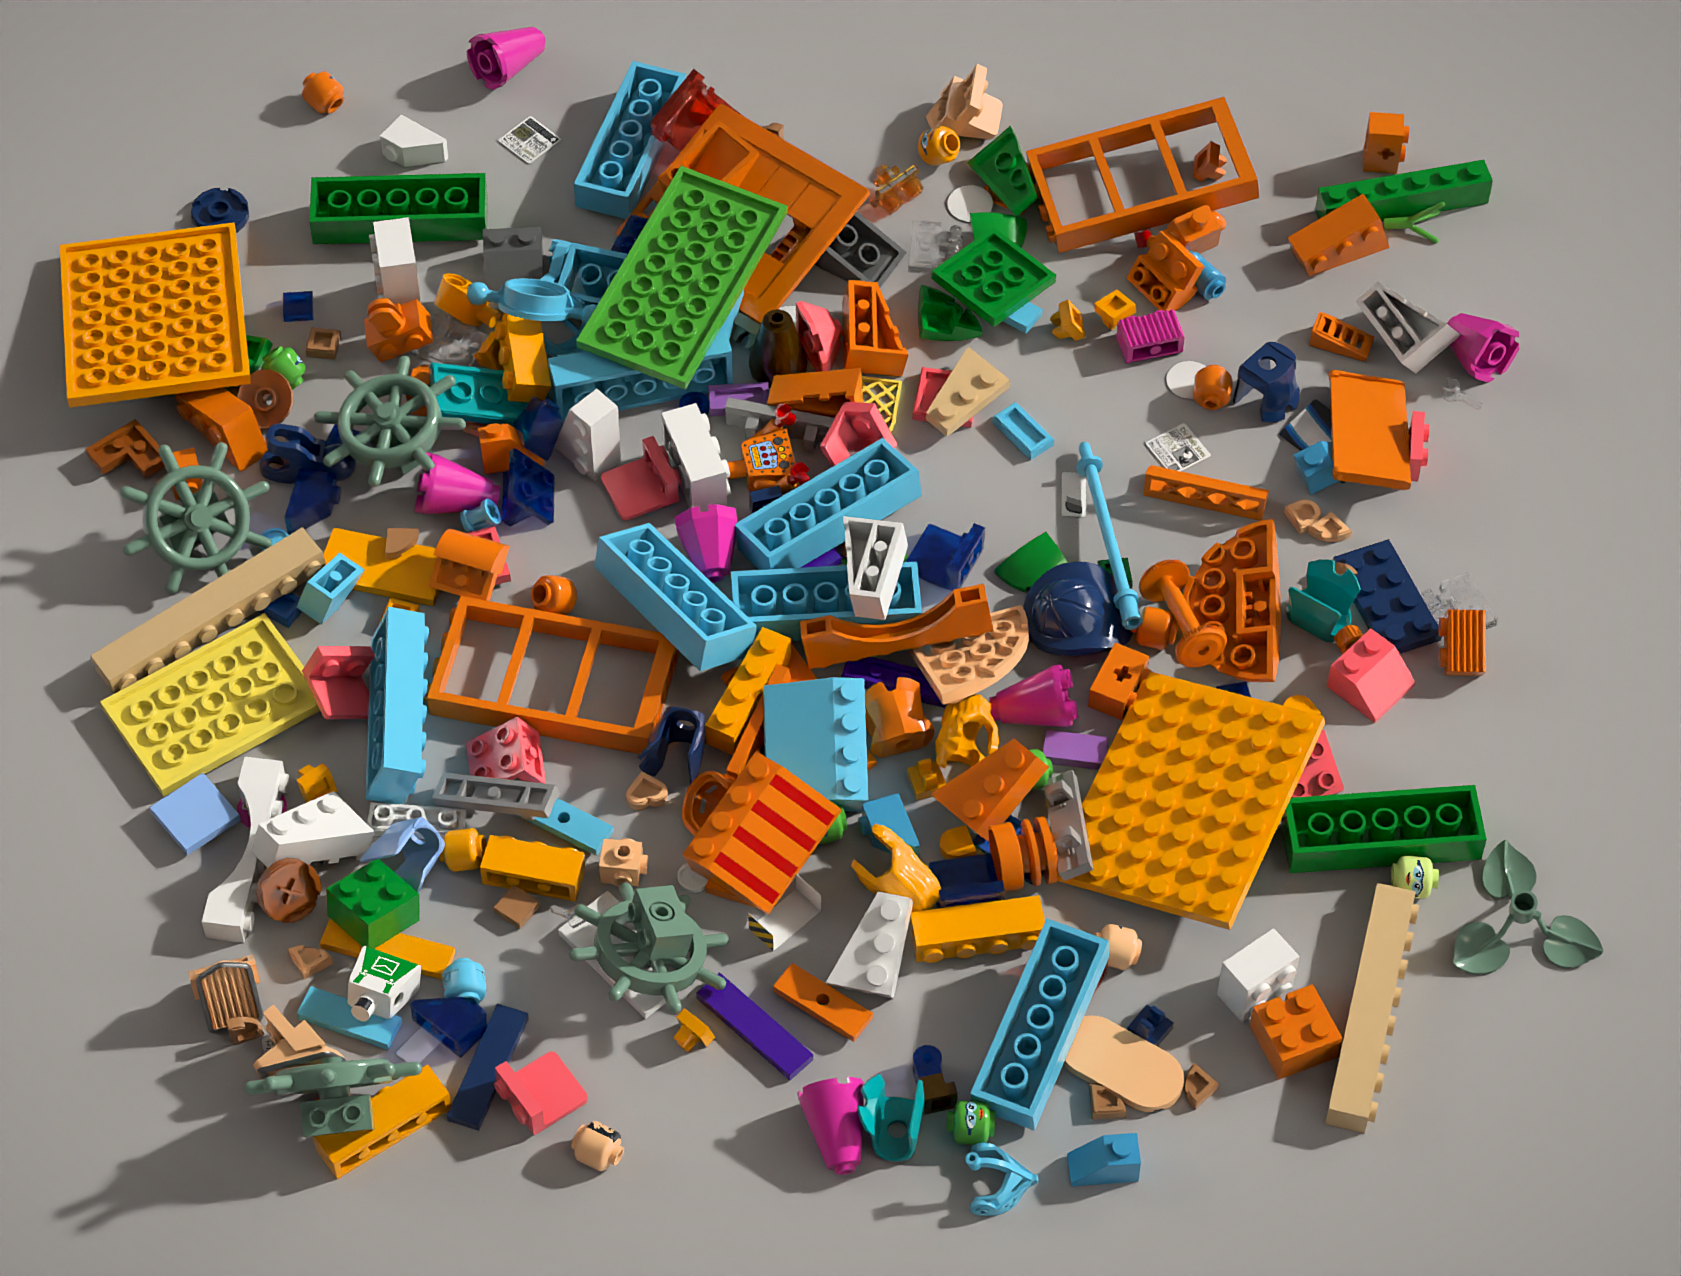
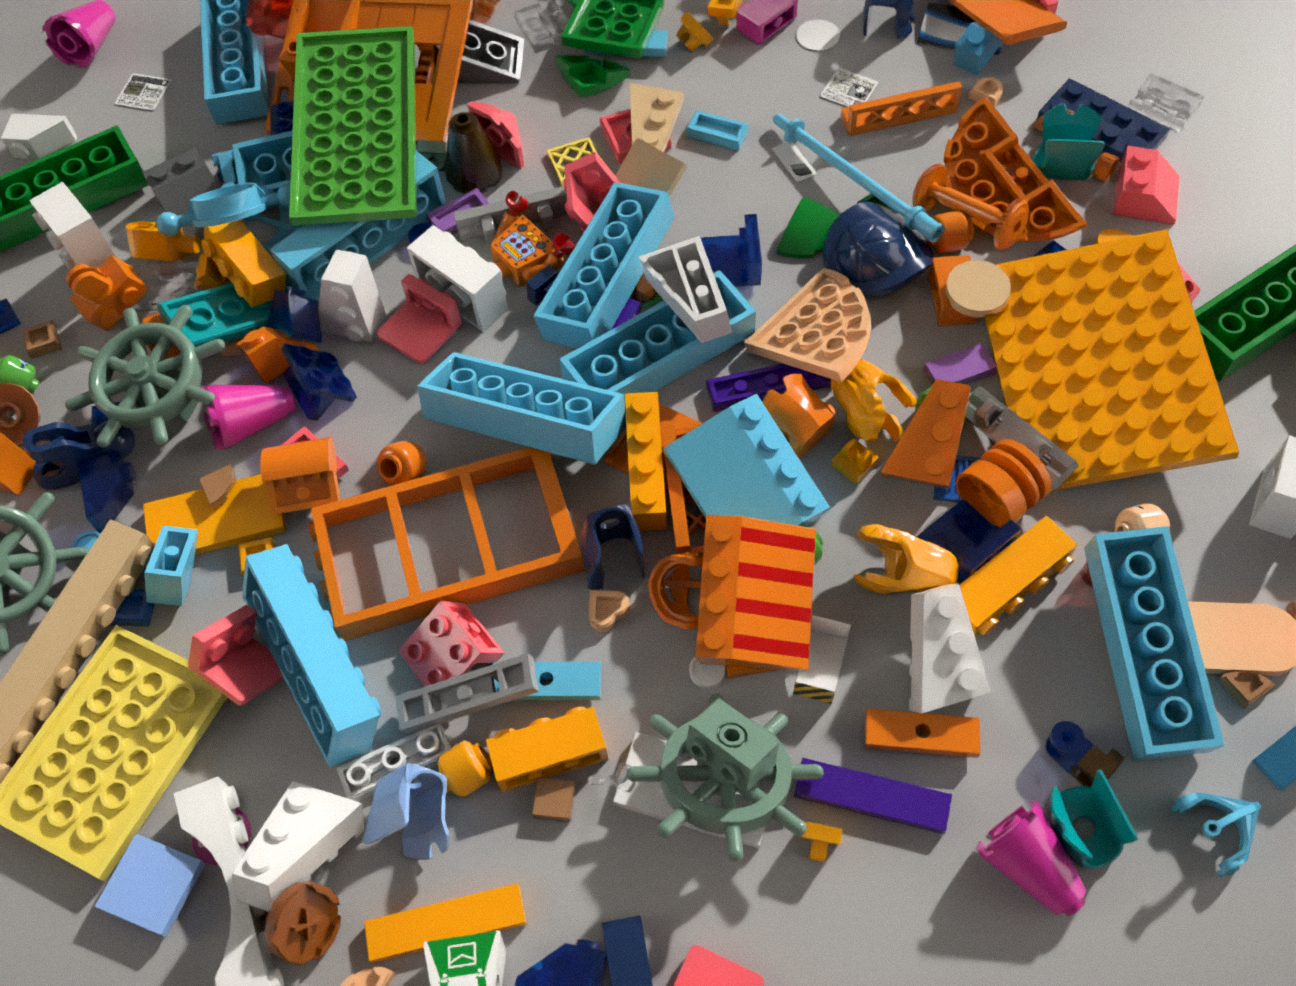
camera: 25 degrees left, 5 degrees up
(315, 782) = (267, 779): light orange tile -> none
(373, 904) = (406, 887): green brick -> none
(465, 980) = (554, 920): medium azure head -> none
(480, 516) = (285, 423): medium azure bush -> none
(622, 862) = (635, 694): light nougat brick -> none
(709, 539) = (514, 339): dark pink cone -> none
(817, 391) = (531, 171): orange wedge -> none
(835, 641) = (695, 374): orange arch -> none
(868, 332) = (539, 110): orange wedge -> none
(890, 813) = (849, 514): dark azure slope -> none
(926, 442) = (650, 168): none -> tan tile
(956, 843) = (925, 506): light orange tile -> none
(971, 1122) = (1156, 781): bright green head -> none
(1037, 700) = (907, 337): dark pink cone -> none
(1128, 687) = (978, 288): none -> tan tile
(1151, 1025) = (1224, 585): dark blue tile -> none
(1214, 386) = (845, 28): orange head -> none
(1329, 529) = (1016, 93): light nougat tile -> none
(1463, 642) = (1200, 124): orange brick -> none

